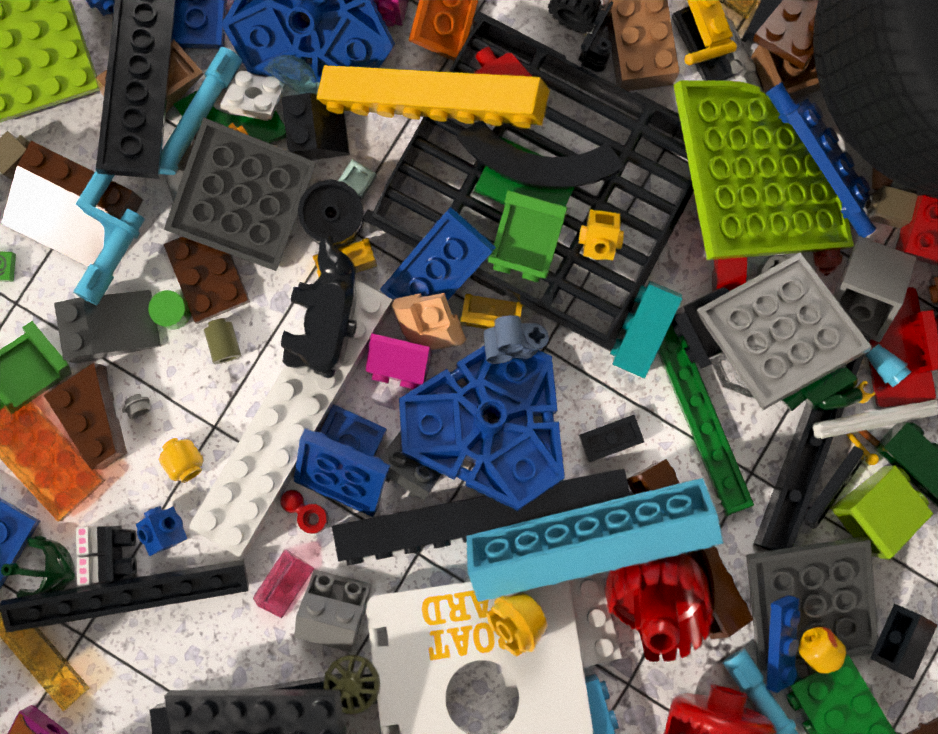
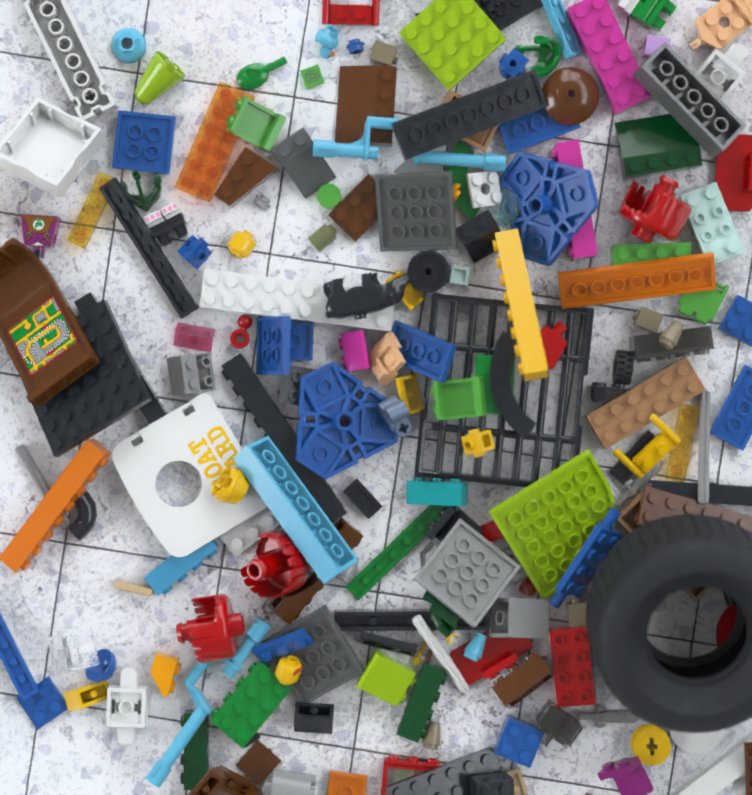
camera: 65 degrees right, 5 degrees up
(352, 682) = (156, 405): olive wheel -> none

